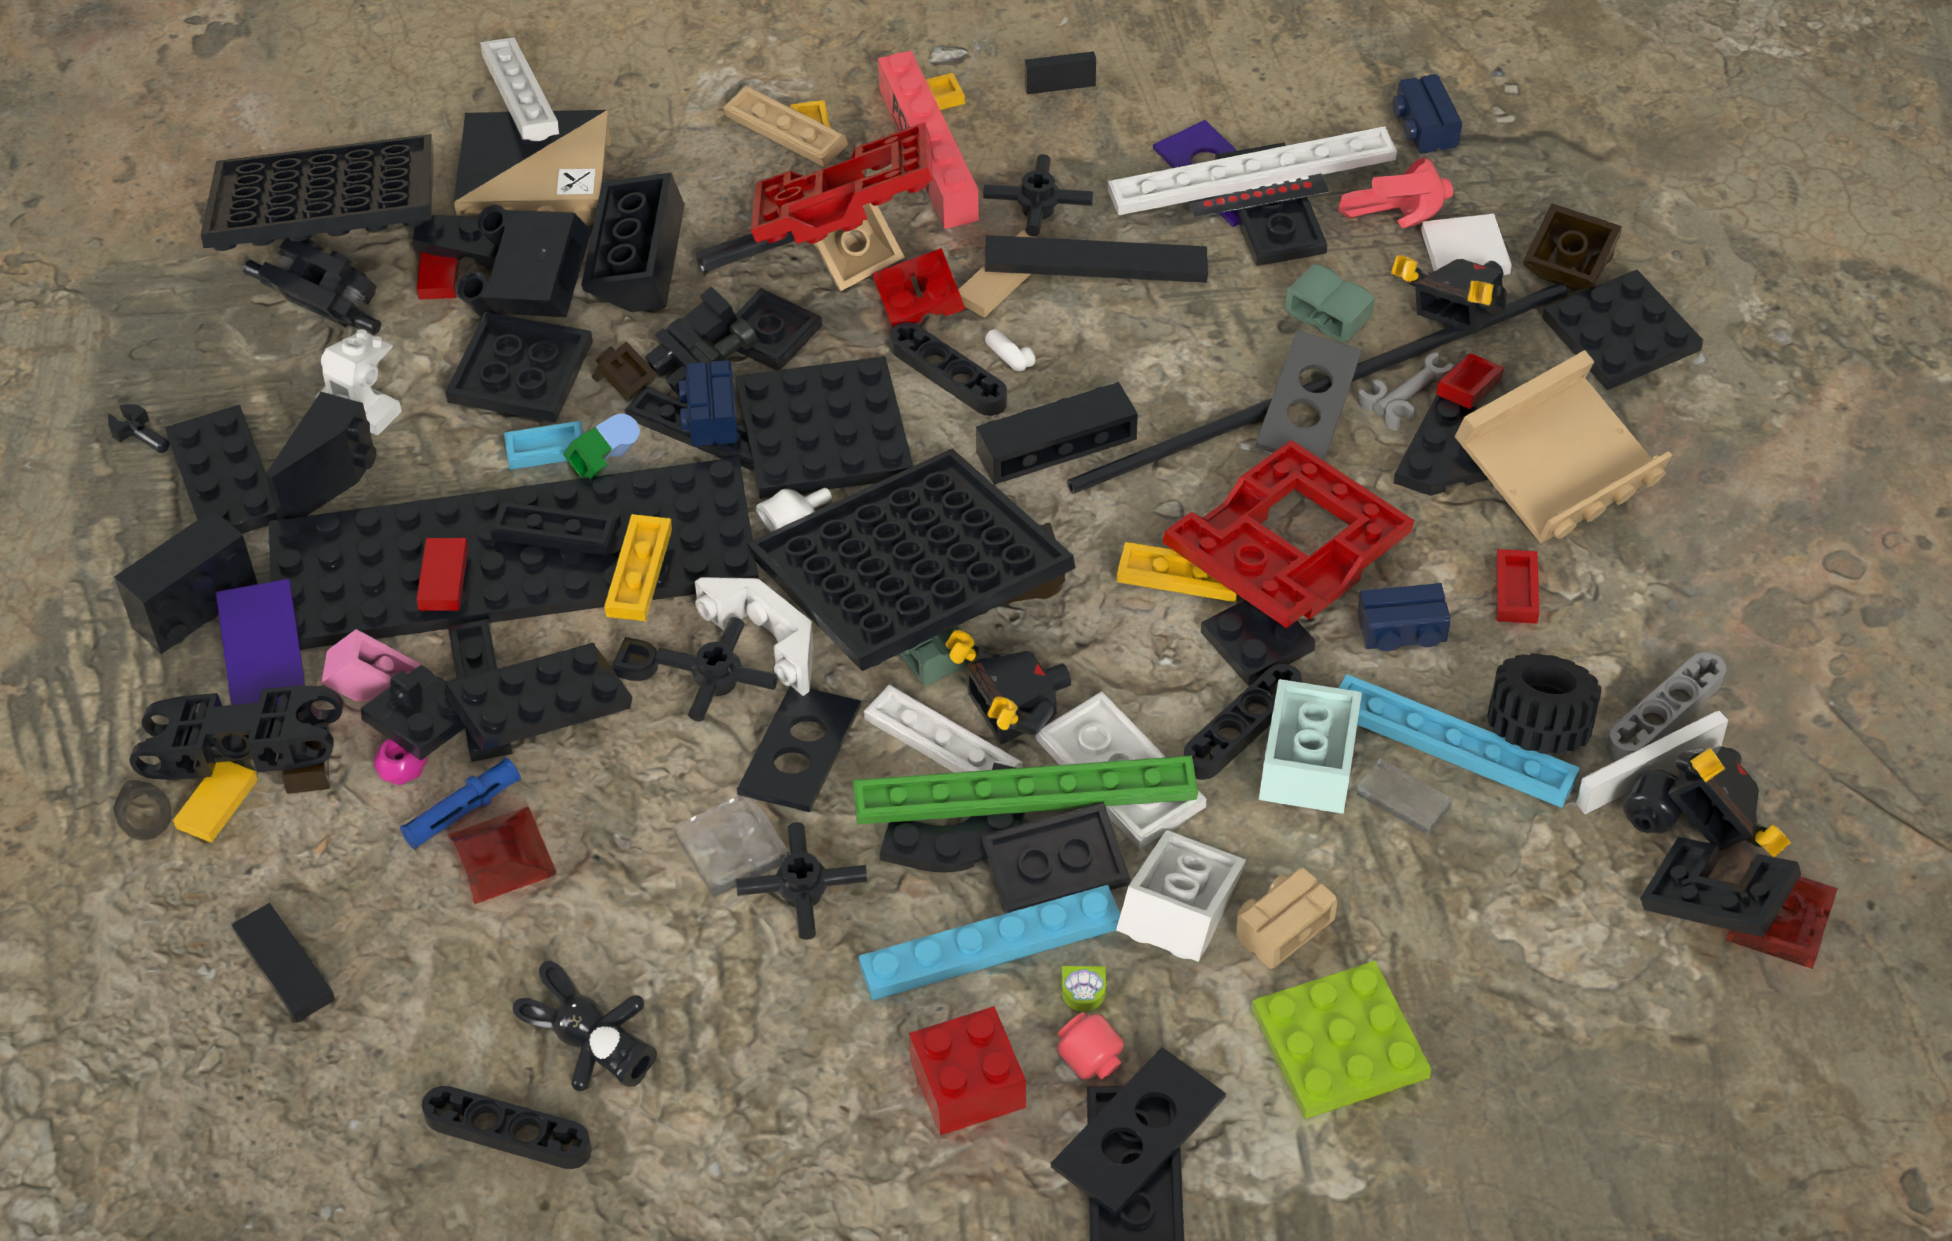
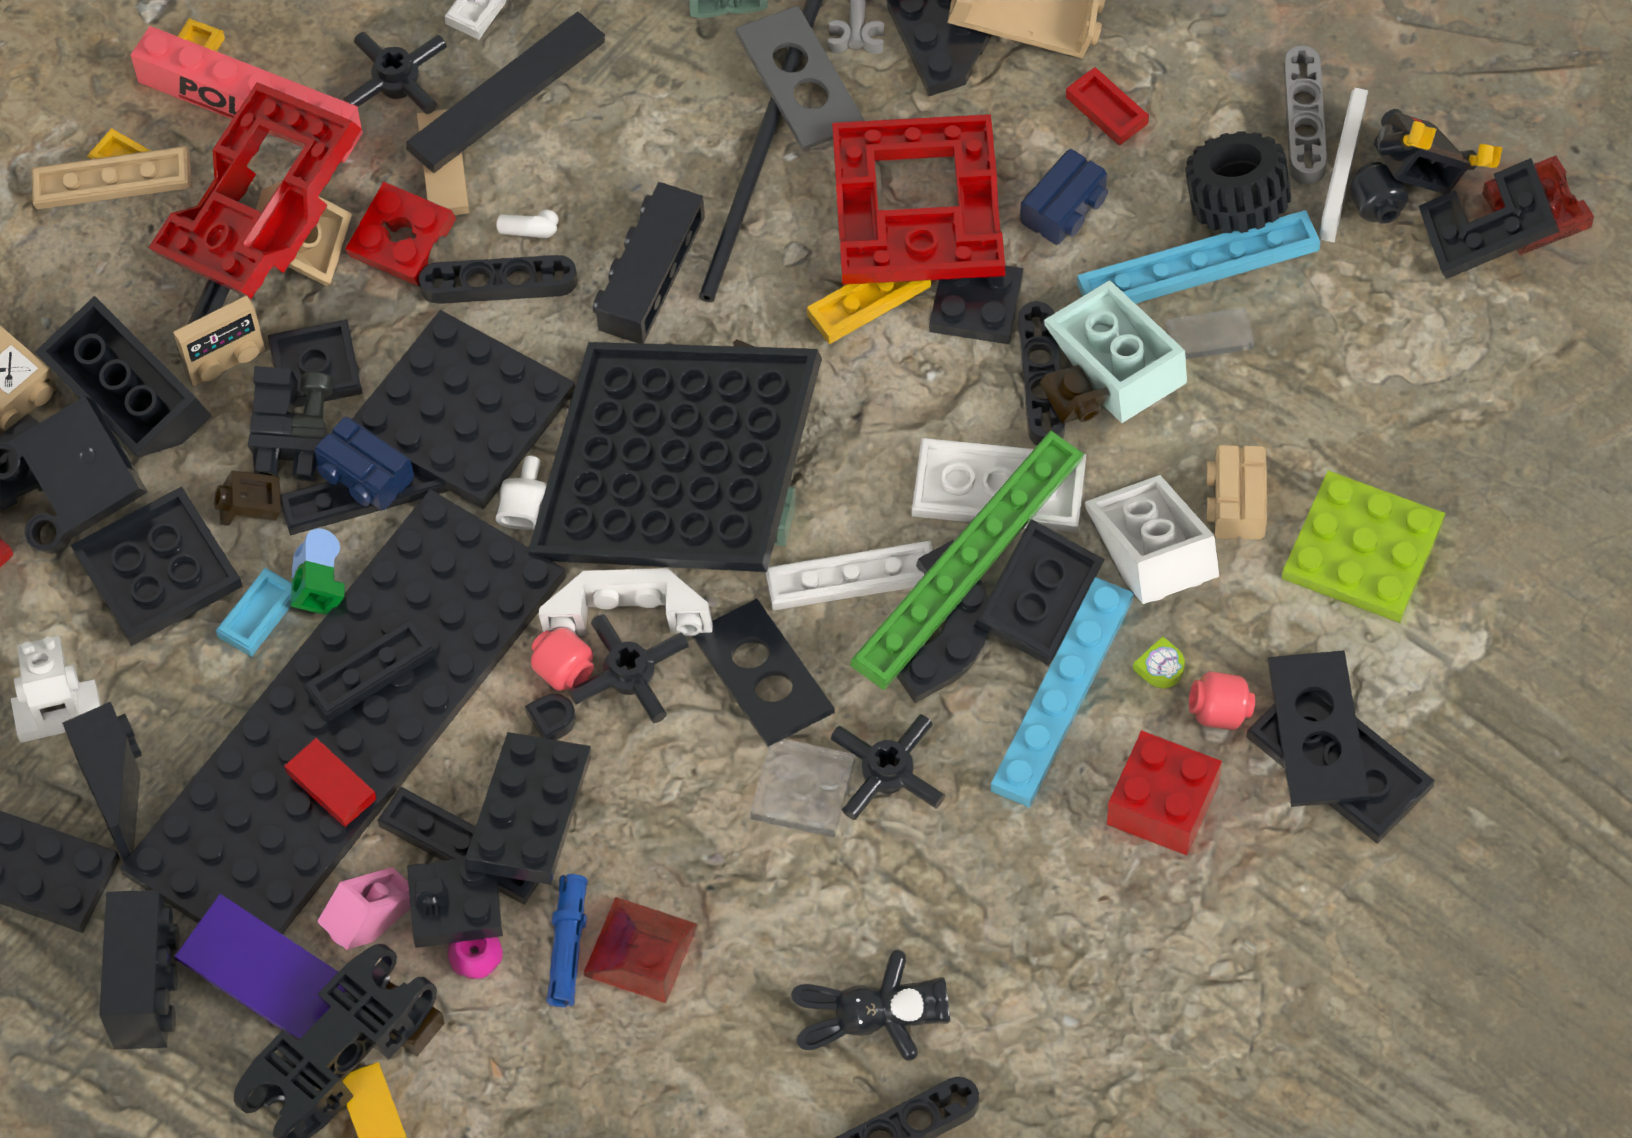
camera: 45 degrees left, 10 degrees up
(638, 568) = (481, 642): yellow plate -> none
(681, 624) = (562, 659): none -> coral head
(717, 260) = (219, 341): none -> tan plate
(1009, 688) = (863, 493): torso -> none
(1240, 747) = (1073, 395): none -> dark brown bracket

